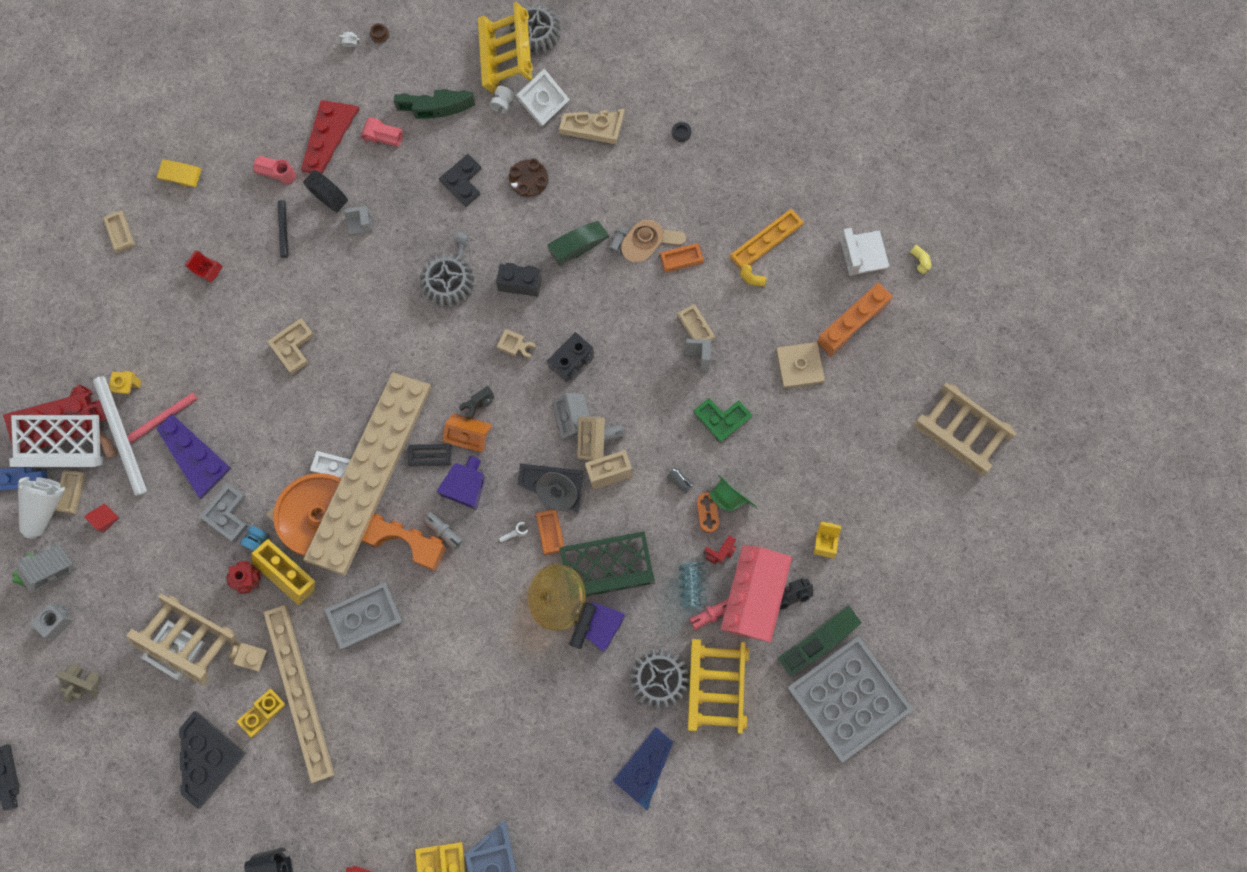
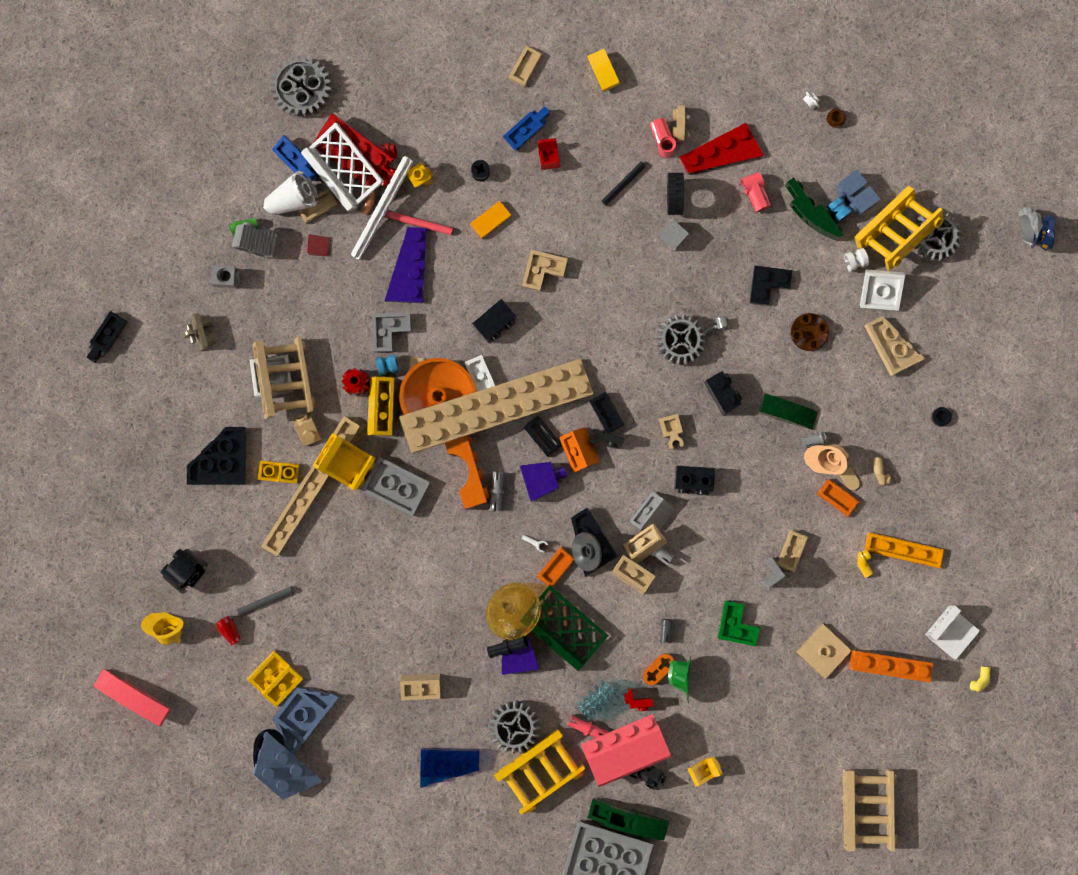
camera: 50 degrees right, 10 degrees up
(167, 269) = (526, 128): none -> blue hinge
(172, 332) = (480, 174): none -> black wheel
(214, 356) = (490, 219): none -> light orange tile
(269, 144) = (679, 131): none -> tan plate
(299, 417) = (495, 321): none -> black brick
(302, 643) = (344, 462): none -> yellow panel
(363, 822) = (265, 601): none -> dark grey bar
(451, 82) = (839, 209): none -> dark azure wheel
(454, 63) = (854, 192): none -> sand blue piece
(455, 386) = (606, 412): none -> black plate
(556, 736) = (420, 687): none -> tan hinge
(685, 209) = (879, 472): none -> tan arm

